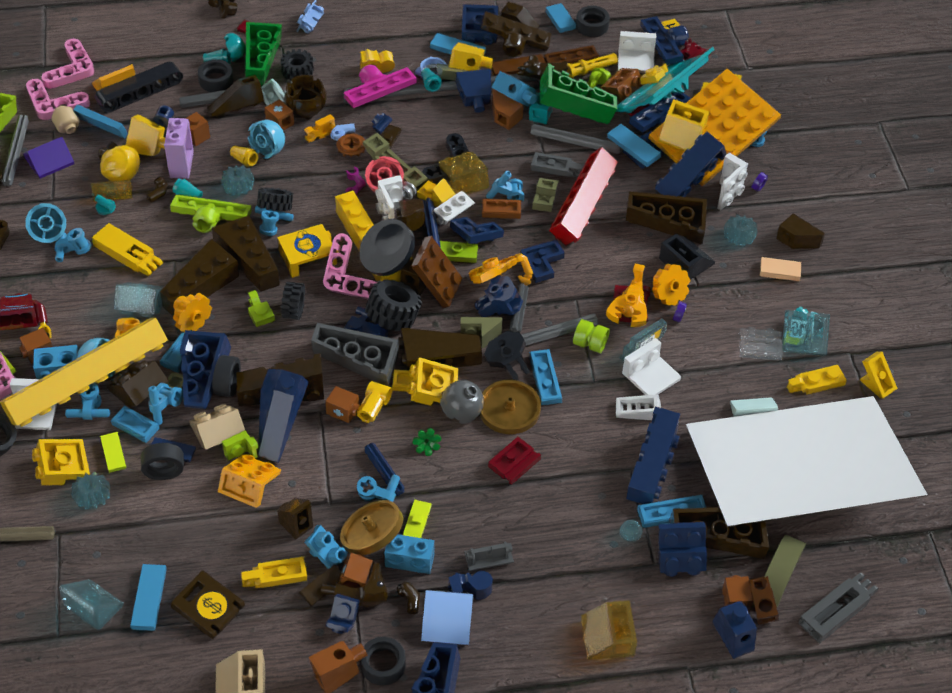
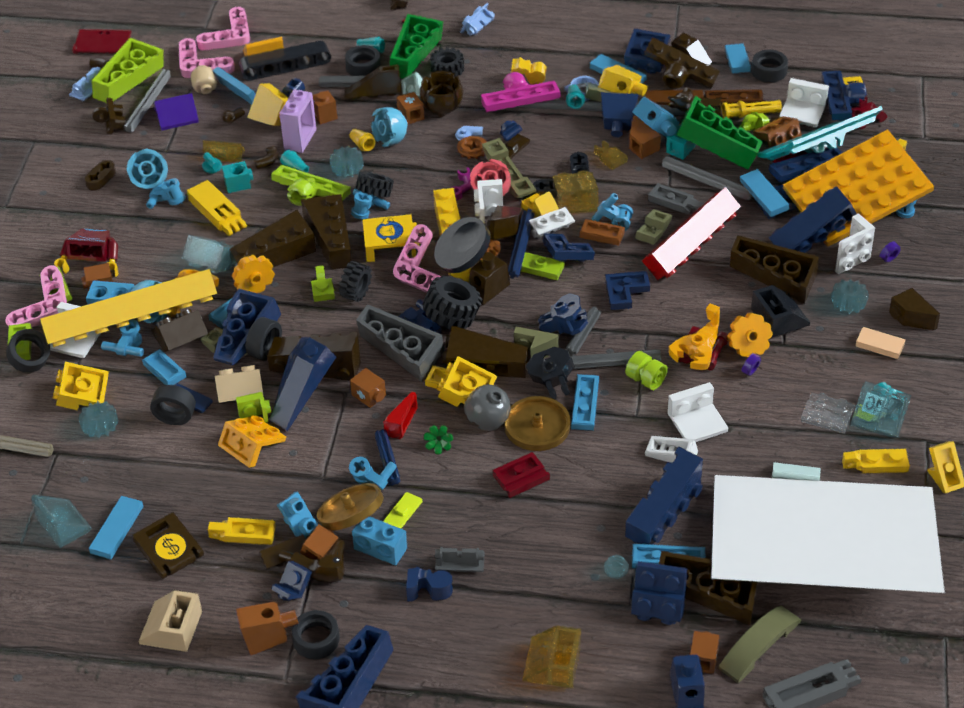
camera: 20 degrees right, 5 degrees down
(113, 452) = (133, 389): neon yellow piece -> none
(120, 163) = (238, 126): yellow piece -> none
(136, 214) = (237, 177): none -> teal brick
(161, 397) = (196, 346): dark azure piece -> none
(235, 46) = (389, 35): teal hair -> none
(296, 517) = (281, 482): dark brown slope -> none
(321, 129) = (447, 127): light orange plate -> none
(375, 398) = (402, 387): yellow piece -> none
(382, 433) = (400, 418): none -> red slope
(408, 190) = (511, 198): light grey bush -> none
(413, 596) = (369, 581): dark brown arm -> none
(437, 272) = (506, 278): reddish brown plate -> none
(447, 617) = (393, 607): light blue slope -> none
(482, 132) = (610, 157): none -> clear yellow plate
(494, 267) = (569, 285): light orange animal -> none
(654, 74) = (813, 126): yellow plate -> none
(654, 331) = (711, 374): clear light blue slope -> none
(683, 125) = (817, 176): yellow slope -> none
(764, 600) = (727, 663): reddish brown leg -> none

